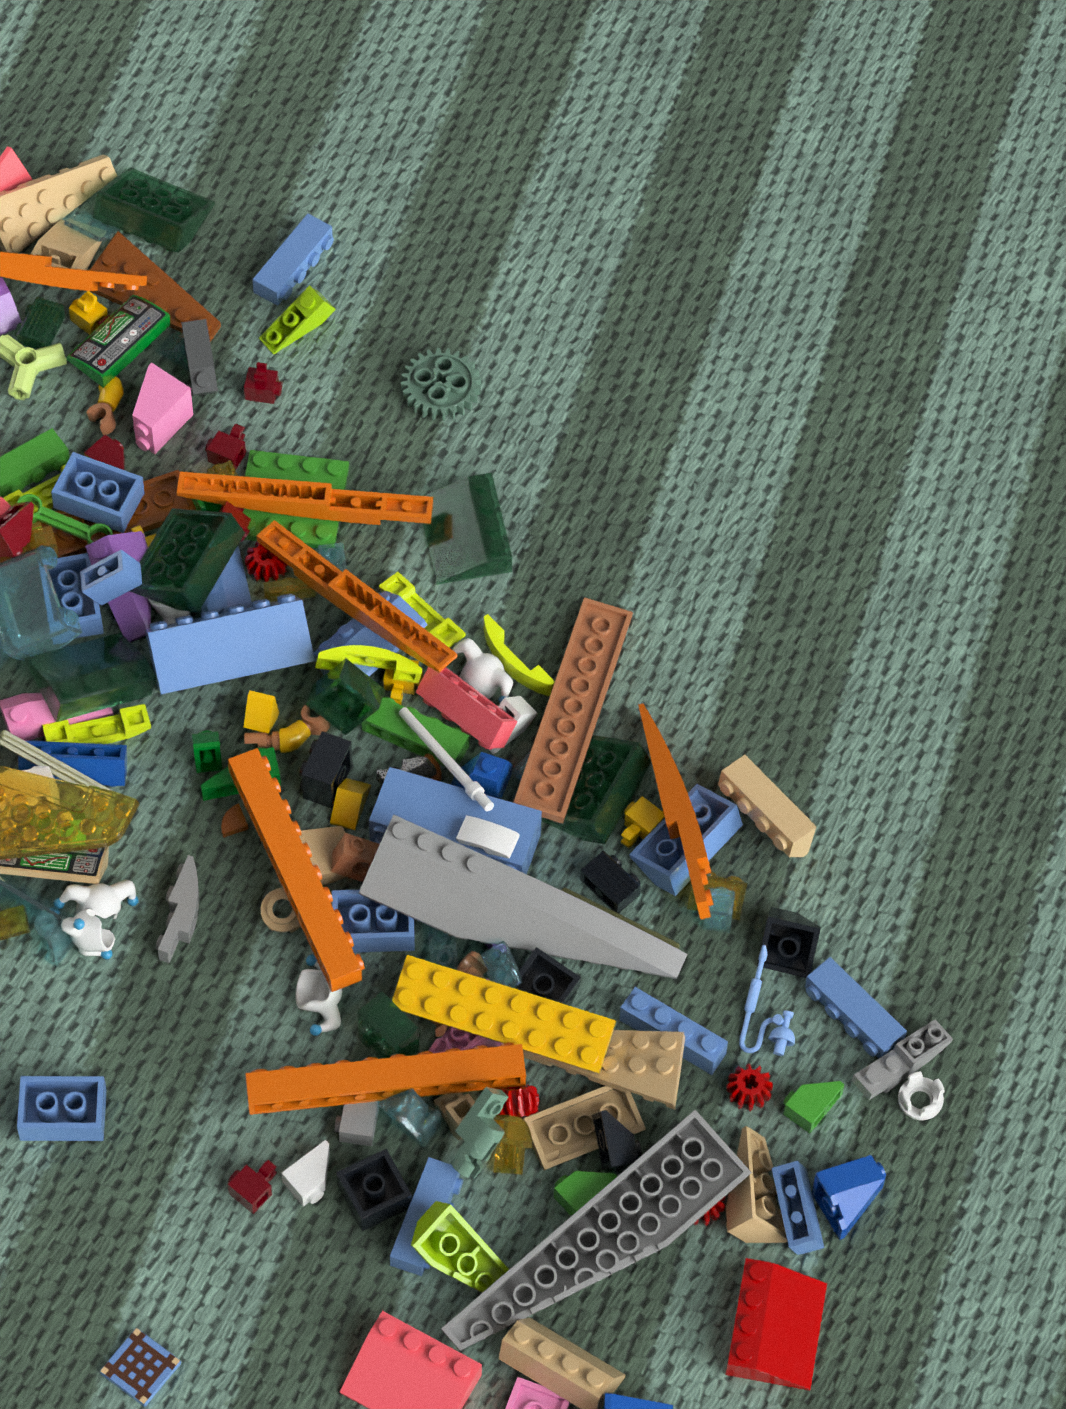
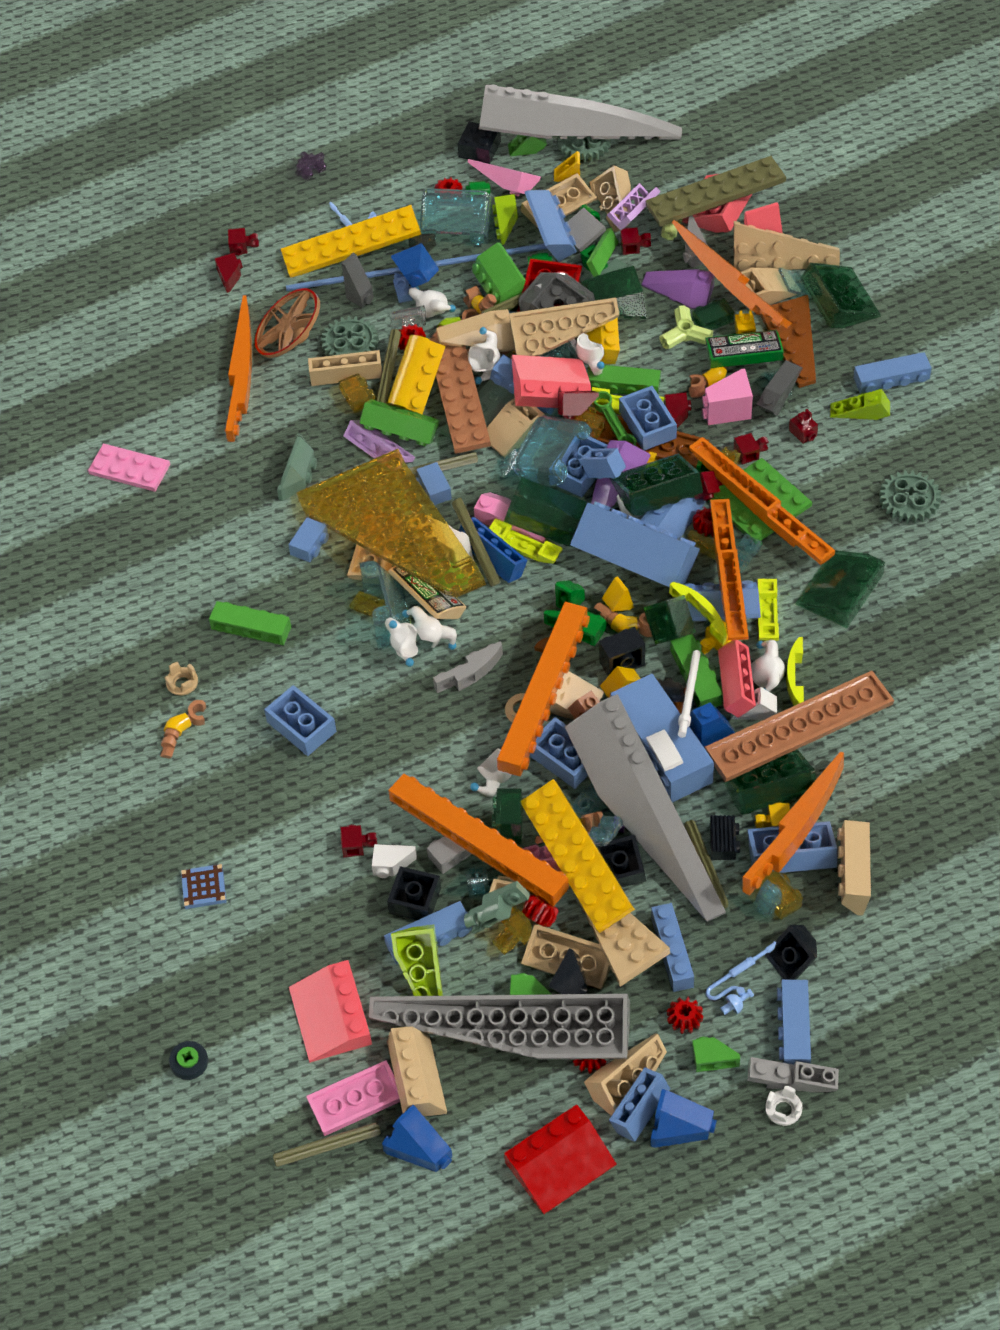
camera: 50 degrees right, 5 degrees down
(406, 1110) = (471, 865): clear light blue slope -> none

